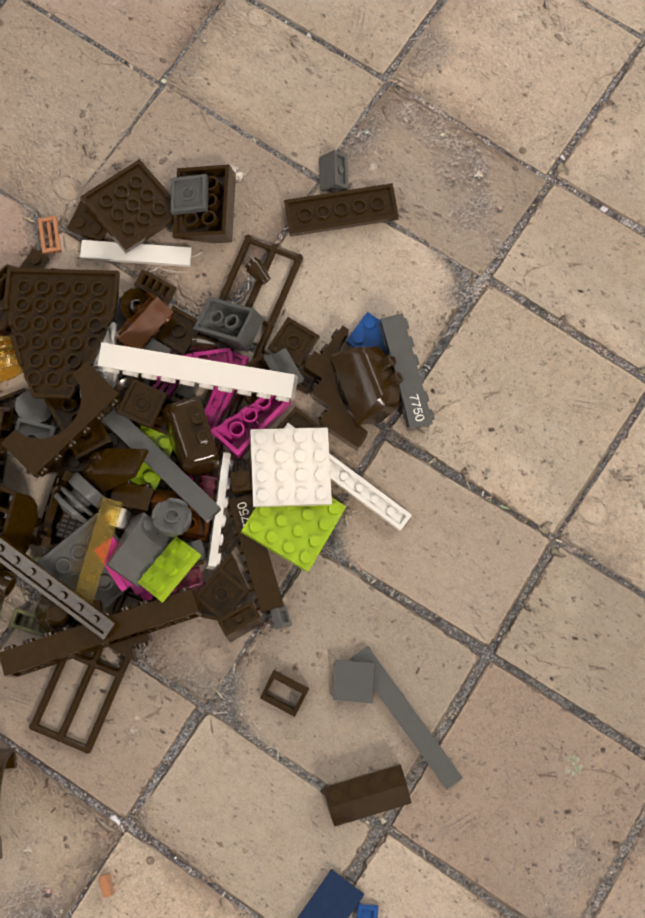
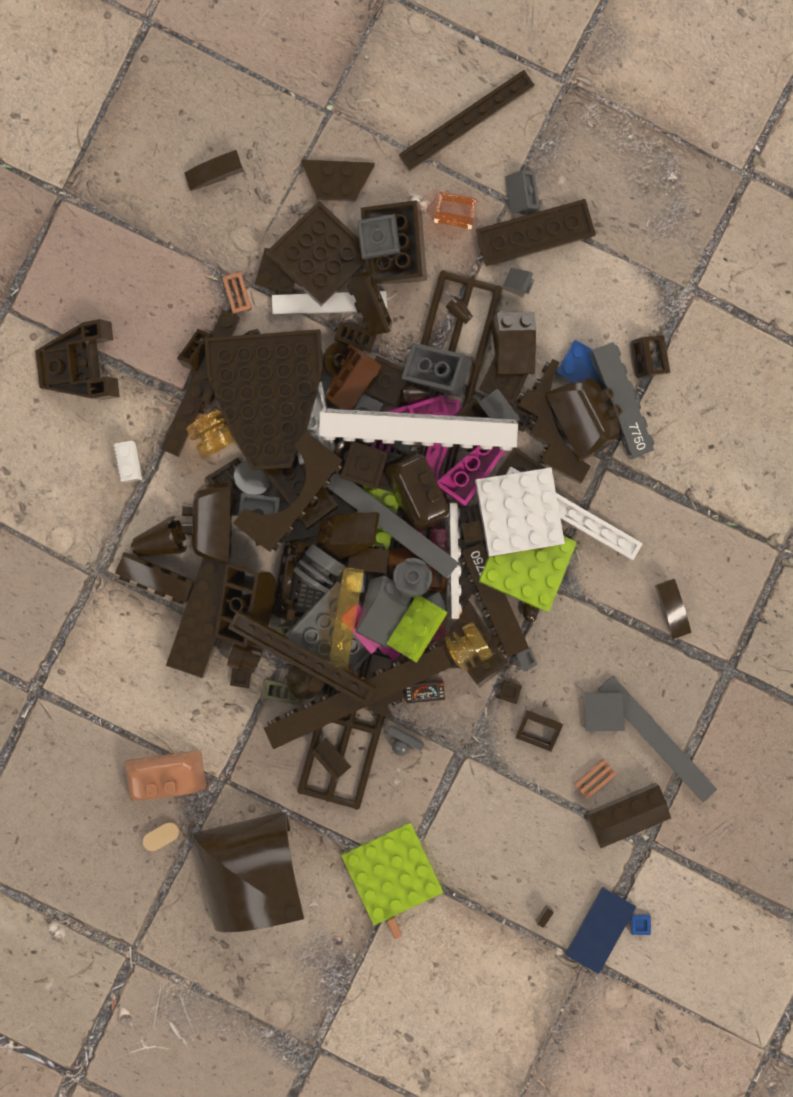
camera: 15 degrees left, 10 degrees up
(46, 122) = (214, 170): none -> dark brown slope
(66, 697) = (330, 759): none -> dark brown panel
(113, 827) = (392, 873): none -> lime plate
(142, 691) = (402, 743): none -> dark grey tile
(161, 143) = (337, 178): none -> dark brown wing
(172, 253) = (370, 303): none -> dark brown slope
(174, 639) = (425, 692): none -> dark brown tile
(220, 595) = (468, 646): none -> clear yellow wheel
(260, 650) = (509, 692): none -> dark brown tile
(265, 189) = (454, 219): none -> clear orange tile
(265, 893) = (544, 916): none -> dark brown tile
(289, 104) = (466, 120): none -> dark brown tile
(289, 571) = (529, 613): none -> dark brown arm
(307, 306) = (514, 342): none -> dark brown slope
(318, 251) = (518, 282): none -> dark grey slope
(351, 742) = (595, 779): none -> nougat tile
(431, 335) = (643, 359): none -> dark brown tile
(436, 583) = (673, 608): none -> dark brown slope

